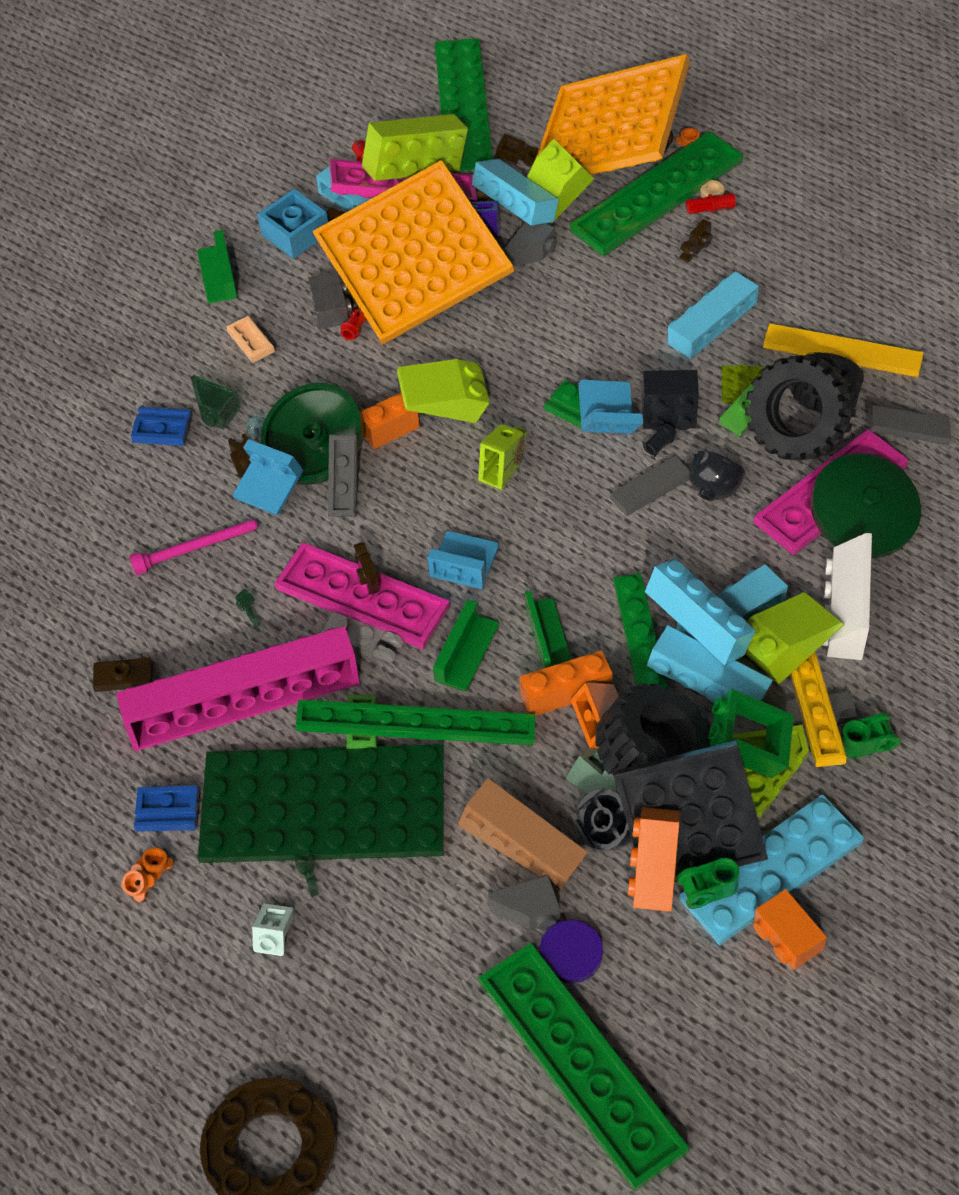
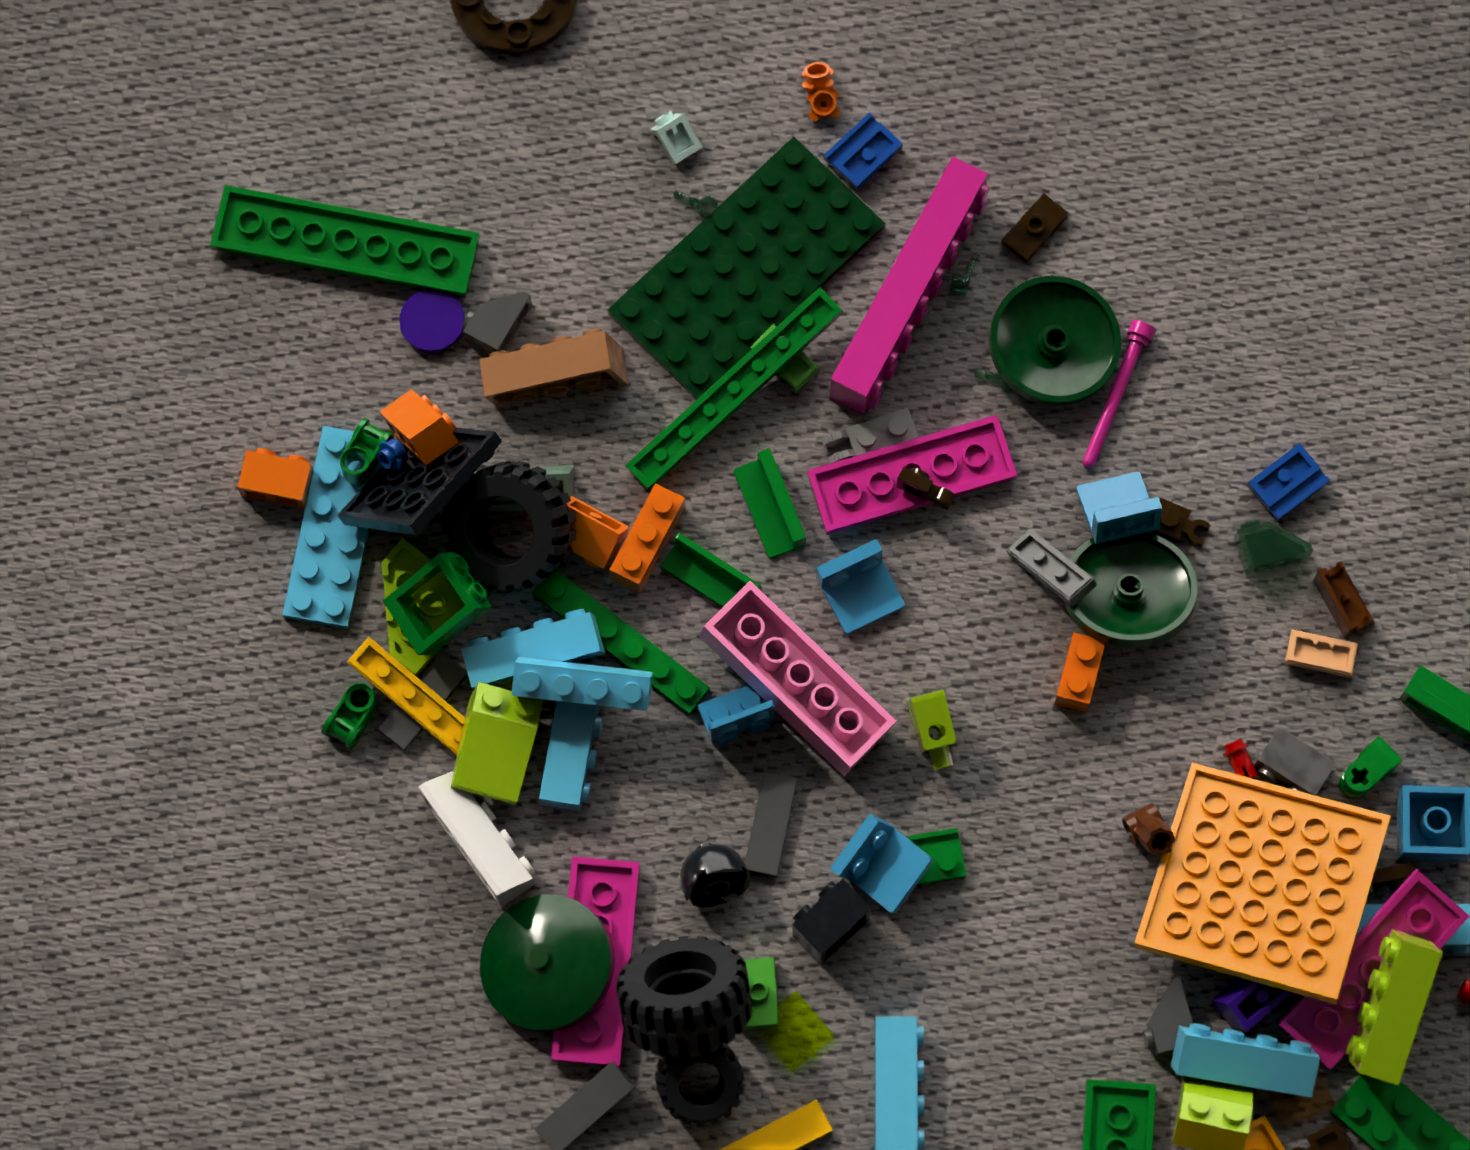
camera: 135 degrees right, 20 degrees up
(193, 591) = (1054, 340): none -> dark green dish
(208, 352) = (1343, 600): none -> reddish brown hinge
(254, 426) = (1201, 560): clear light blue hinge -> none
(291, 272) = (1372, 766): none -> green piece
(440, 326) = (1149, 830): none -> reddish brown piece
(445, 389) = (1057, 740): lime slope -> none
(557, 530) = (797, 677): none -> bright pink brick
(602, 820) = (508, 428): black cylinder -> none
(613, 542) = (735, 713): none -> dark azure bracket
(664, 435) = (808, 882): black pin -> none
(693, 854) = (392, 454): none -> blue plate

